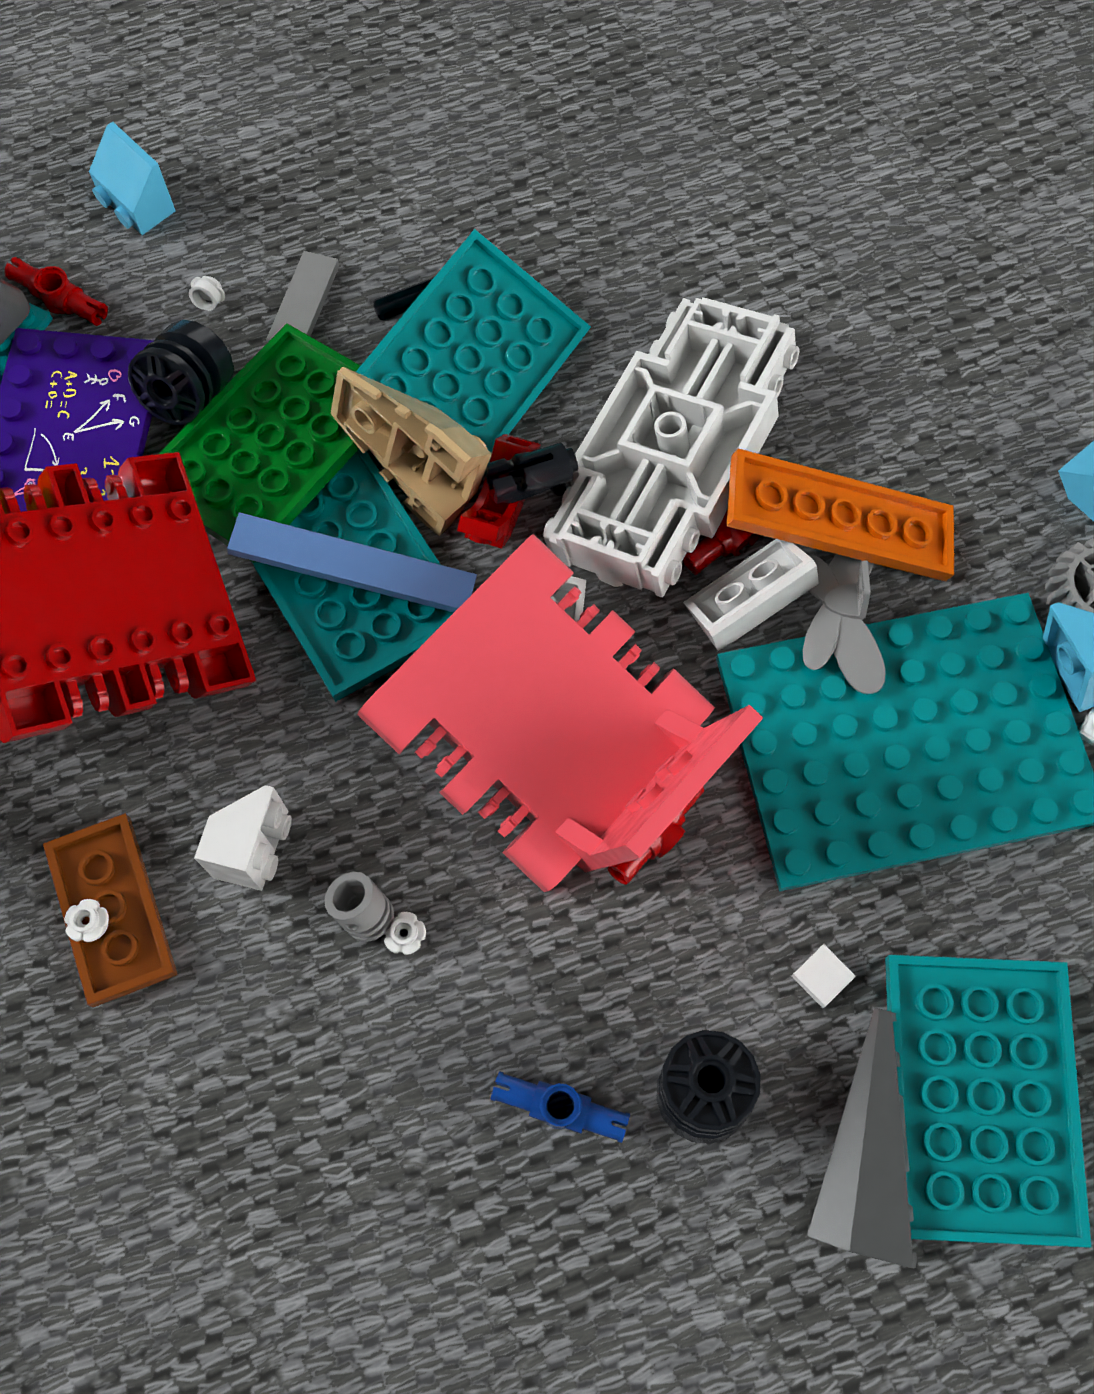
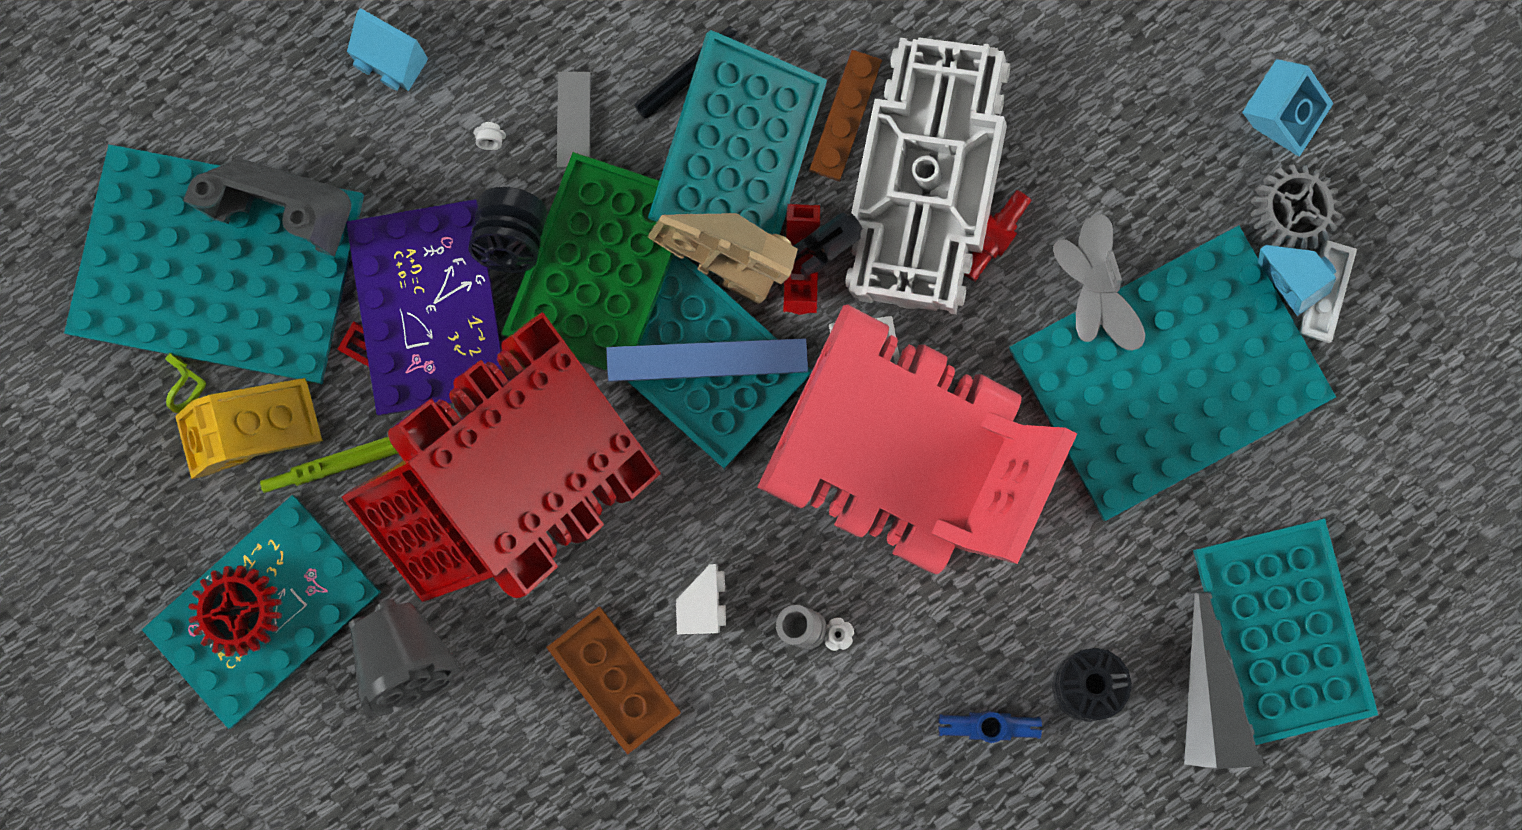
camera: 15 degrees left, 15 degrees up
(56, 290) = (345, 167): red pin -> none
(94, 929) = (613, 692): white plate -> none
(600, 370) = (845, 115): none -> dark orange plate
(752, 592) = (1022, 288): white slope -> none
(823, 976) = (1151, 576): white tile -> none
(840, 515) = (1079, 207): orange plate -> none

